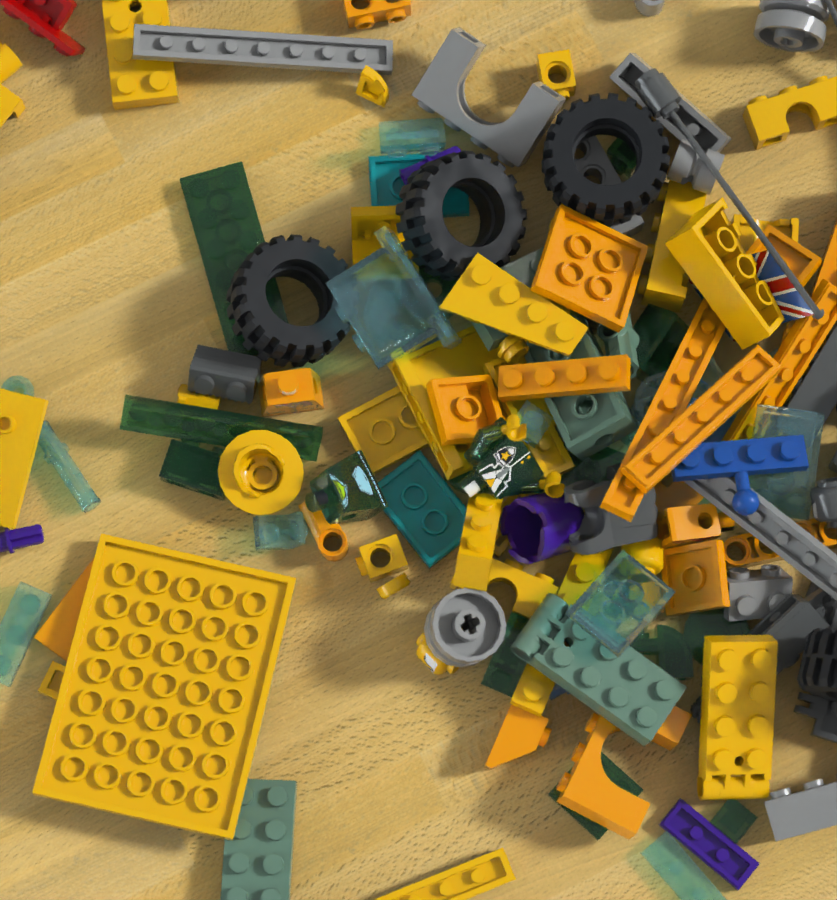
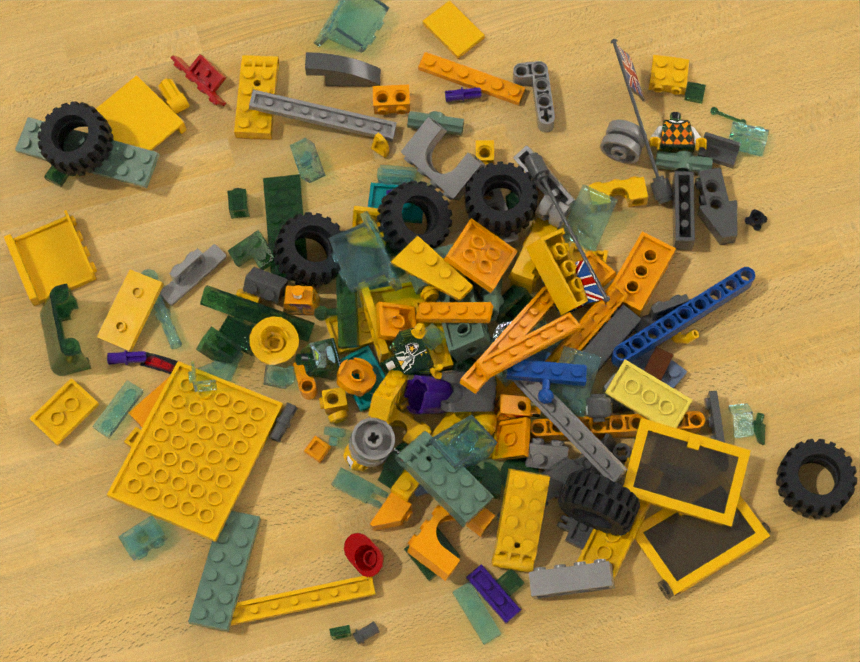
camera: 15 degrees right, 10 degrees down
(69, 539) = (159, 363): none -> sticker
(87, 858) = (132, 537): none -> clear light blue brick
(90, 371) = (191, 272): none -> light grey bracket
(146, 231) = (238, 203): none -> clear green brick
(151, 574) = (198, 385): none -> clear light blue bracket
(167, 498) = (218, 347): none -> clear green slope
(179, 531) = (222, 369): none -> clear light blue tile
(190, 307) = (253, 247): none -> clear green plate
(252, 135) = (307, 160): none -> clear light blue brick
(302, 610) = (283, 422): none -> dark grey pin
(368, 646) = (317, 449): none -> light orange tile
(376, 406) = (346, 315): none -> clear green plate
(394, 614) = (334, 433): none -> clear light blue tile
(428, 504) = (349, 383): none -> light orange plate
(435, 29) = (451, 124): none -> sand green piece
(450, 701) = (358, 487): none -> clear light blue hinge
(485, 818) = (363, 554): none -> red piece
(758, 162) = (590, 216): none -> clear light blue tile

